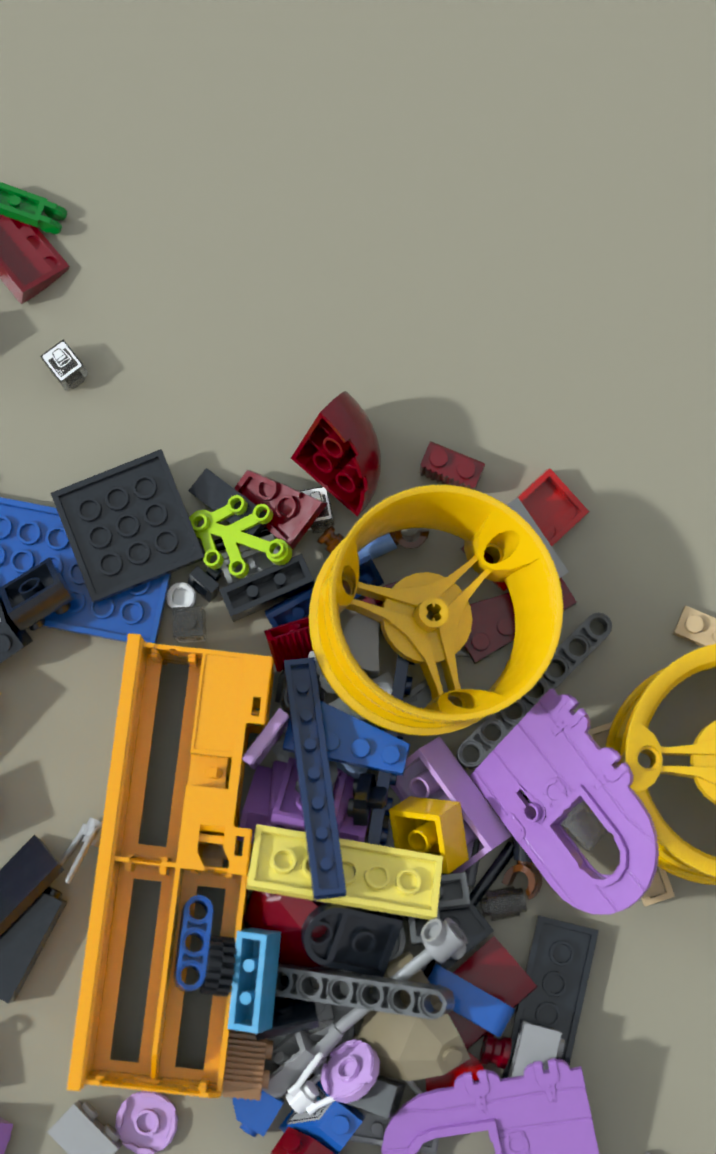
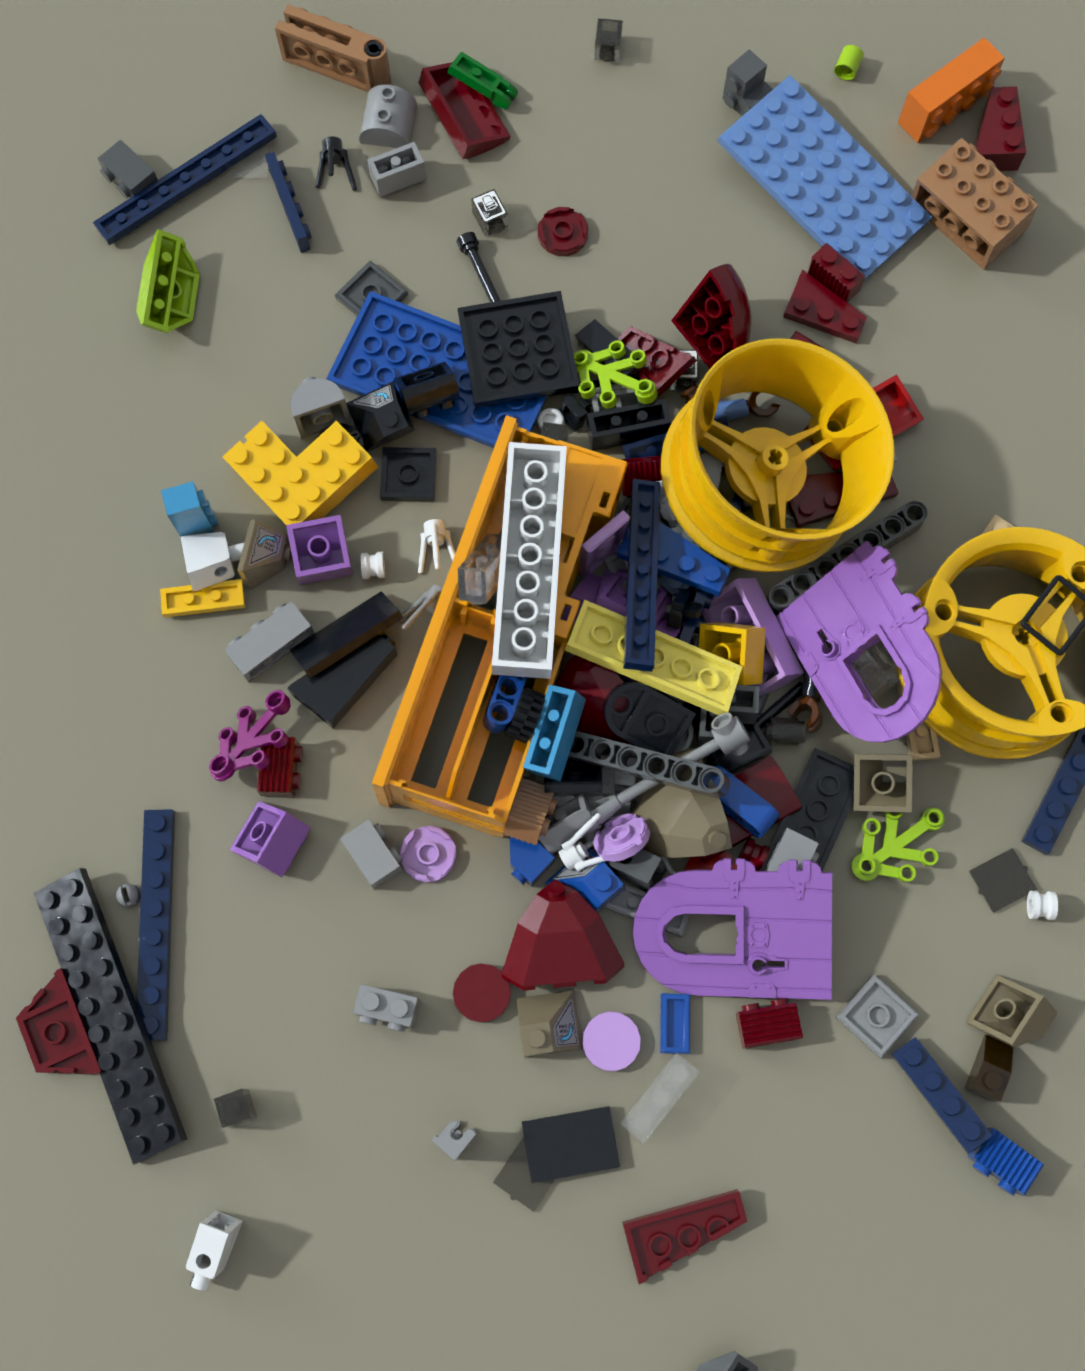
camera: 10 degrees right, 5 degrees down
(19, 808) = (372, 565): none -> white wheel
(36, 692) = (408, 474): none -> black tile
(49, 408) = (468, 245): none -> black piece
(78, 759) = (434, 535): none -> white plant
(142, 812) = (480, 571): none -> clear brick
(150, 368) = (562, 231): none -> dark red tile
(156, 128) = (608, 40): none -> clear smoke brick
(186, 802) = (529, 561): none -> white brick
(326, 162) = (745, 83): none -> dark grey brick
(428, 250) = (824, 177): none -> medium blue plate
(430, 101) = (848, 62): none -> lime beam
(456, 403) = (823, 310): none -> dark red wing
(462, 360) = (836, 272): none -> dark red brick
(550, 117) = (951, 90): none -> orange brick
(598, 249) = (974, 203): none -> medium nougat brick
(613, 154) = (1001, 129): none -> dark red wedge
(619, 942) = (883, 782): none -> dark tan slope
(643, 1005) = (894, 847): none -> lime plant

